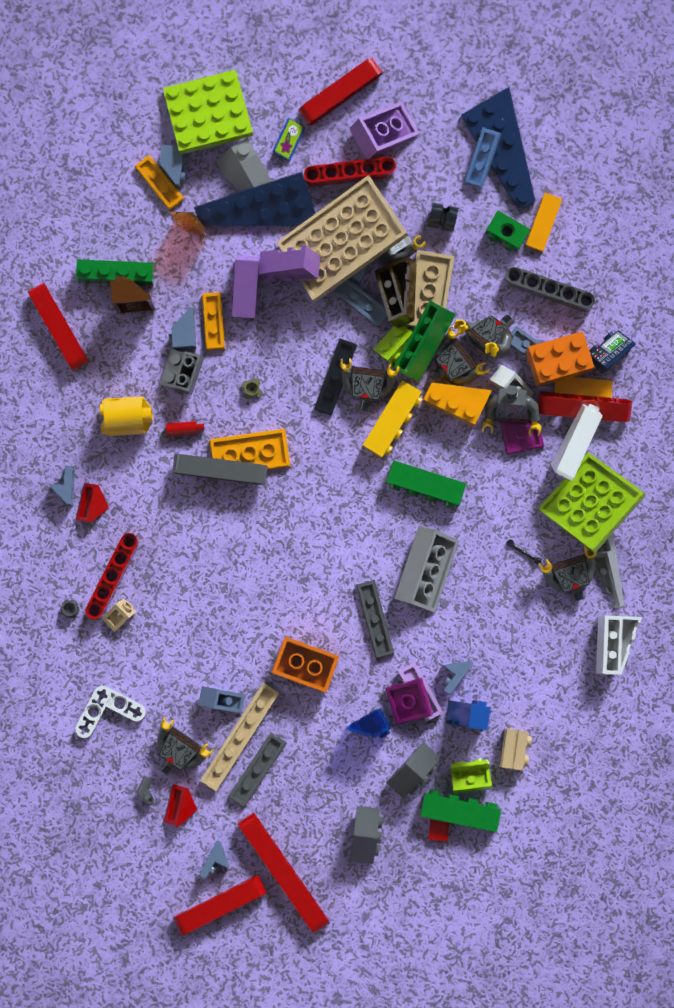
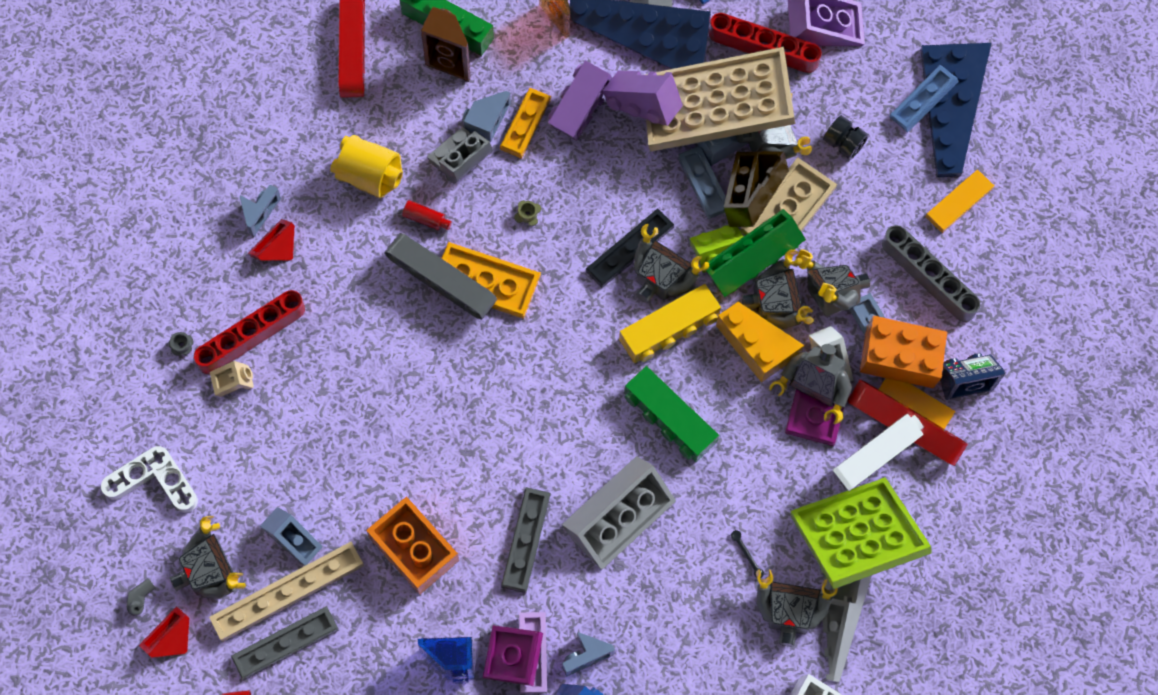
camera: 30 degrees right, 15 degrees down
(501, 221) = (911, 175): green brick -> none

